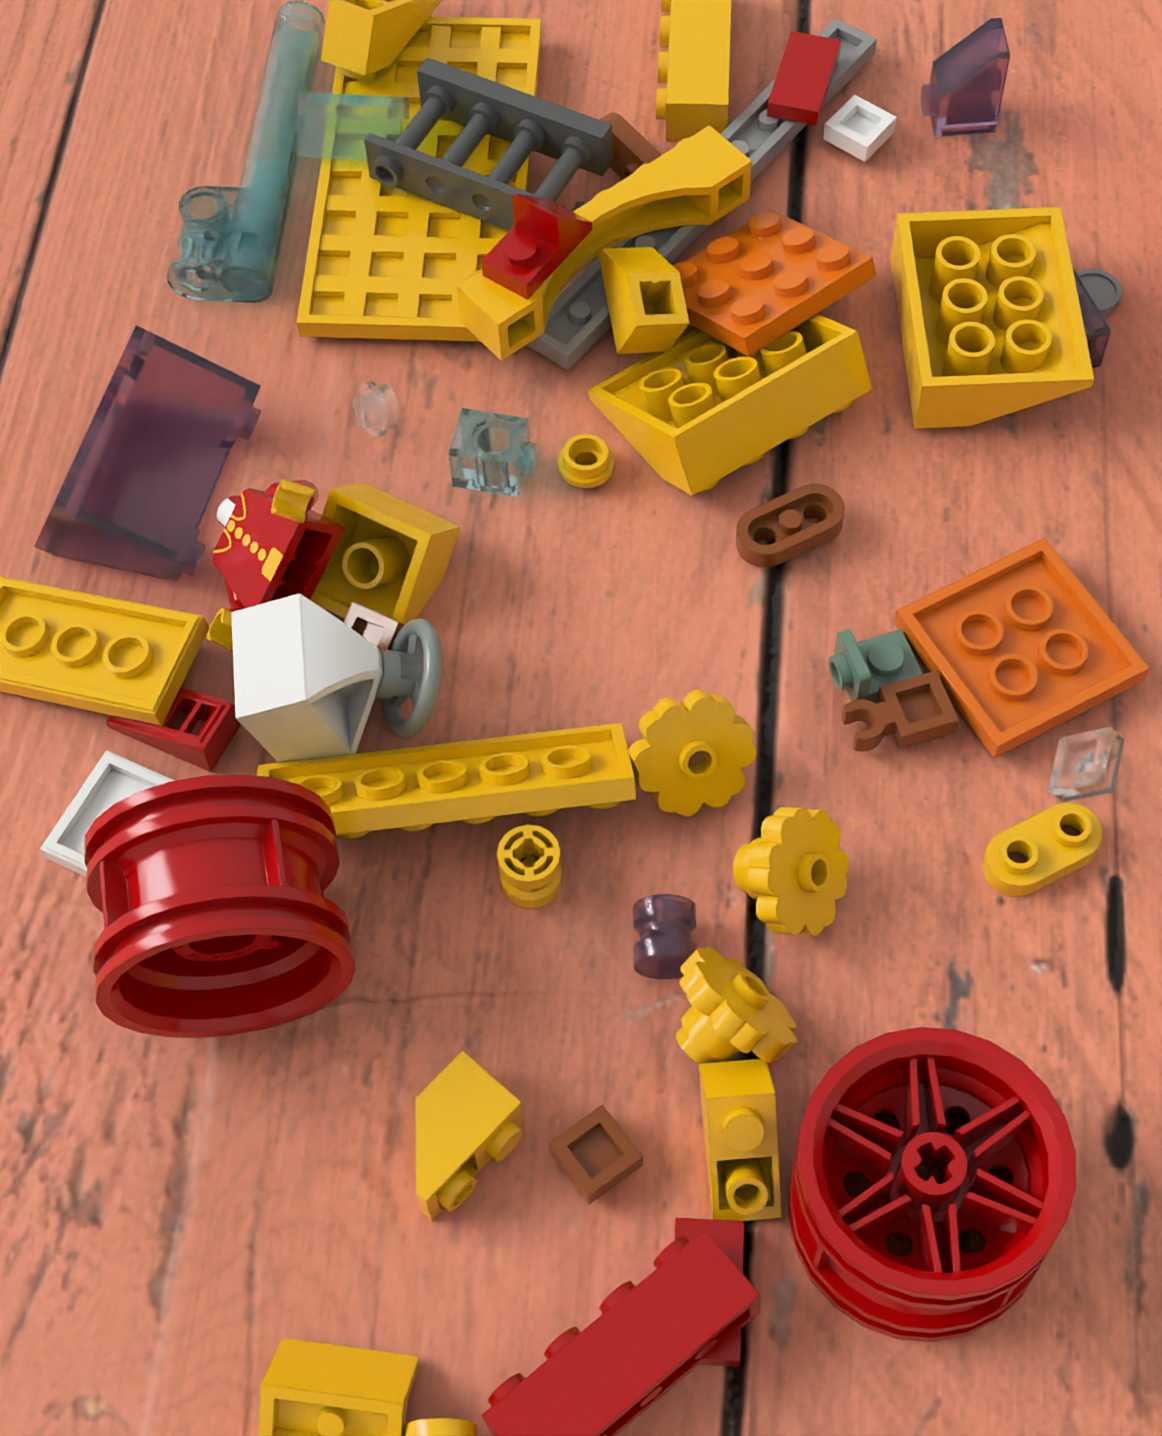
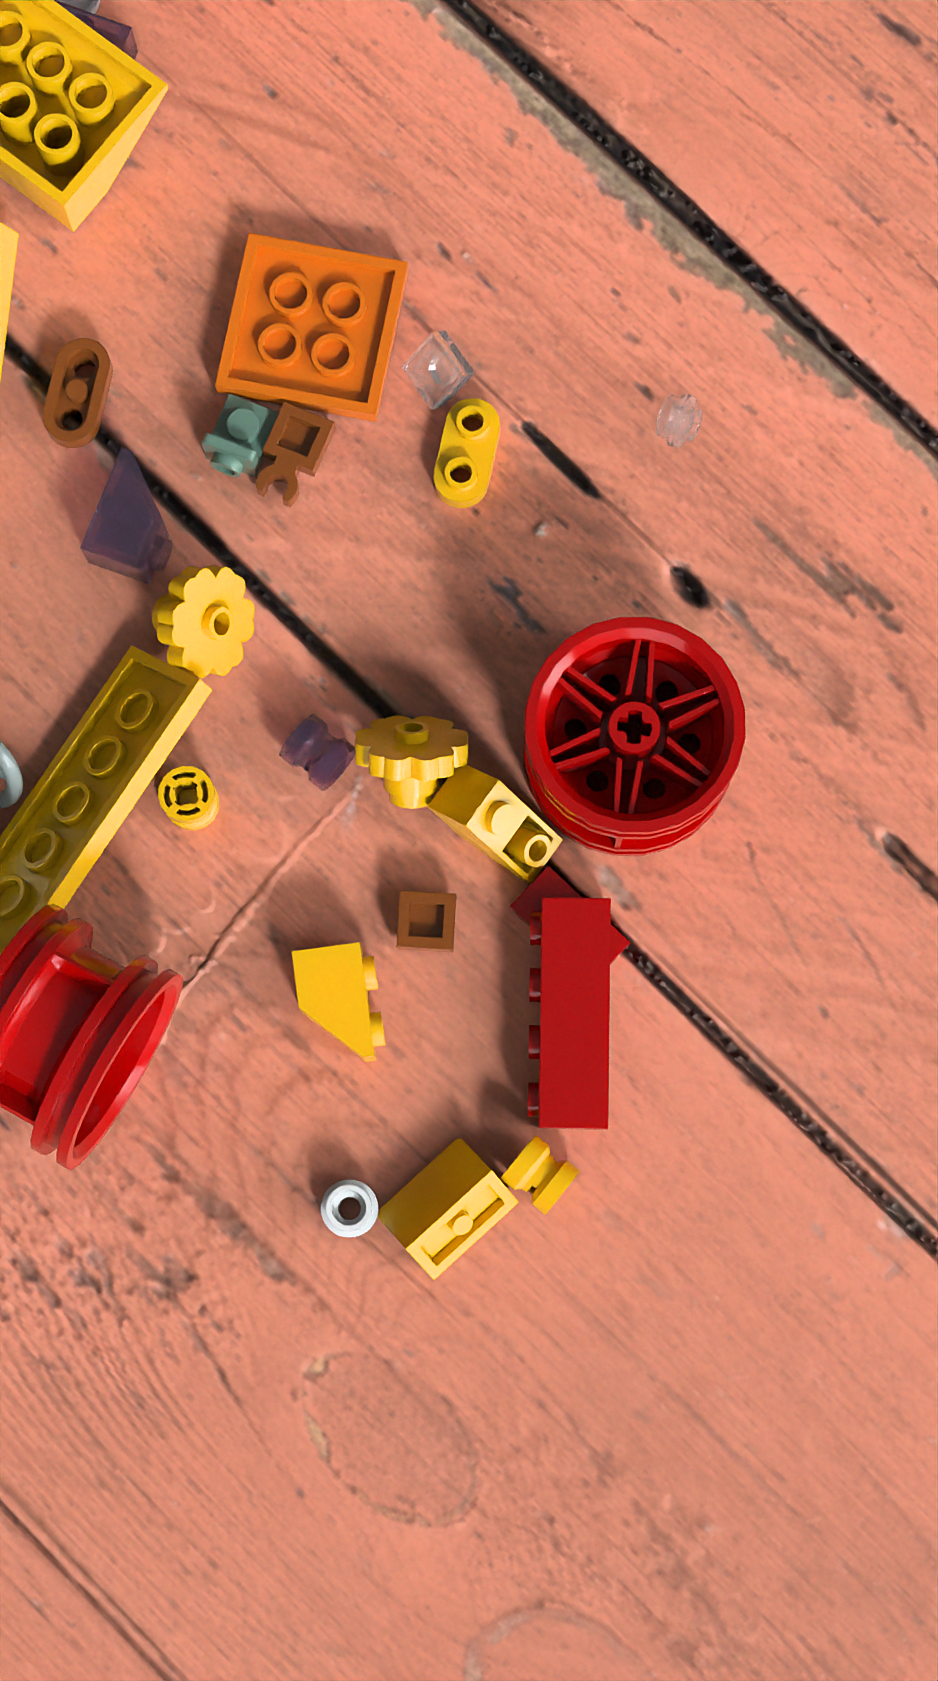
camera: 50 degrees left, 20 degrees up
(253, 1294) = (333, 1199): none -> white plate
(720, 637) = (127, 526): none -> clear purple slope
(794, 871) = (349, 631): yellow plant -> none

